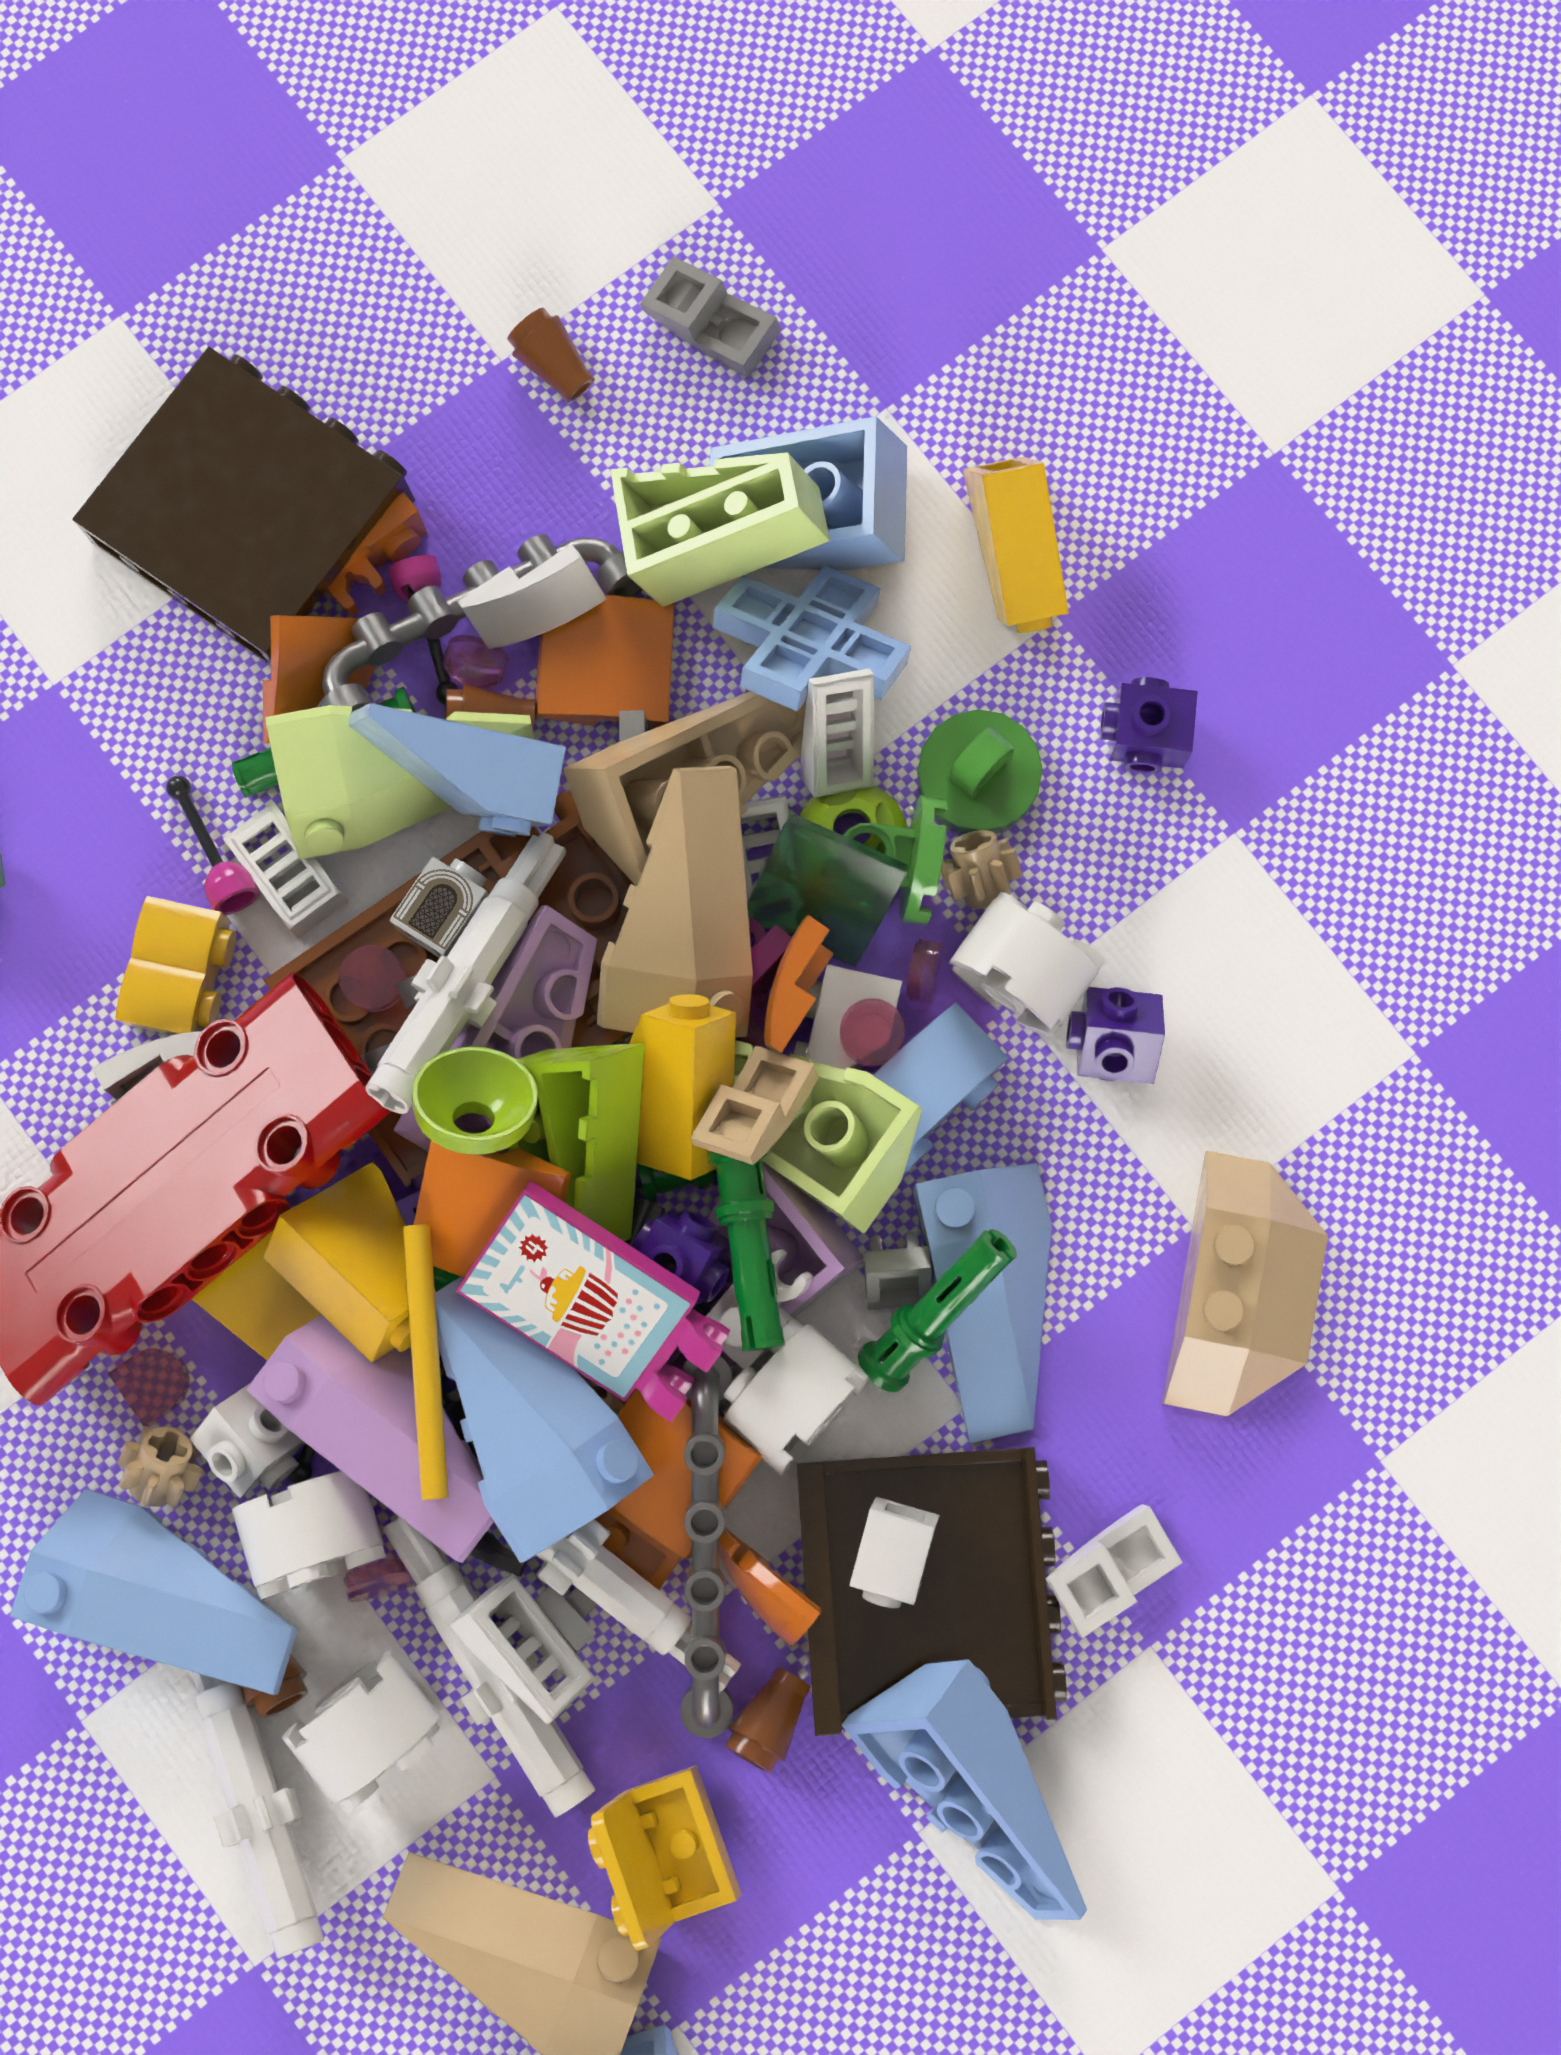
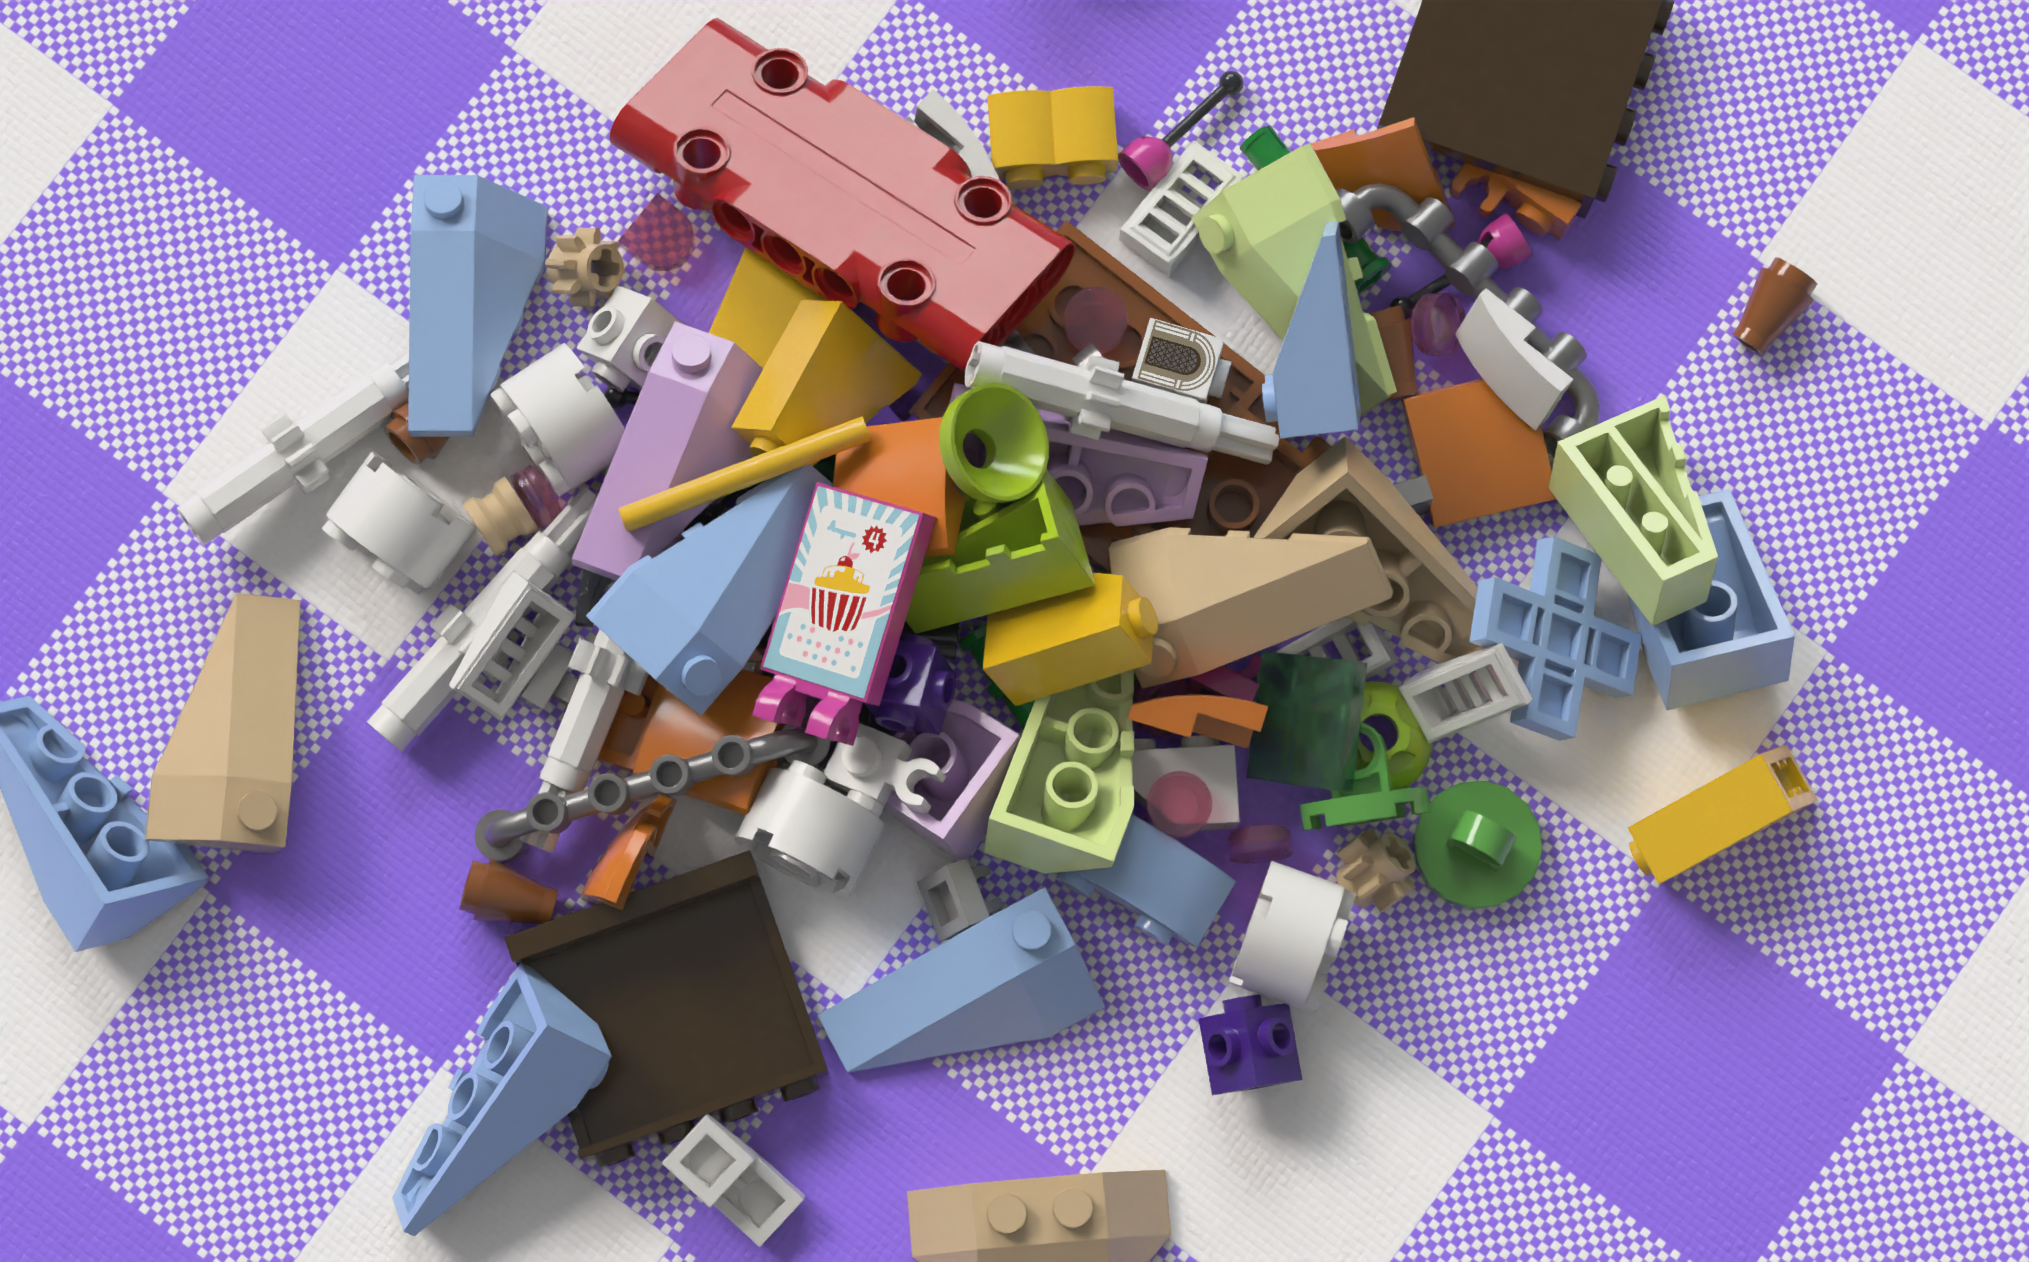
camera: 70 degrees right, 0 degrees up
(386, 1623) = (500, 516): none -> tan wheel
(662, 1855) = (358, 827): yellow bracket -> none
(710, 319) = (1864, 449): light grey slope -> none
(745, 1214) = (965, 729): green pin -> none
(759, 1107) = (1067, 712): tan slope -> none
(893, 1553) = (692, 965): white brick -> none
(920, 1327) = (909, 931): green pin -> none
(1150, 725) = (1560, 1018): dark purple brick -> none

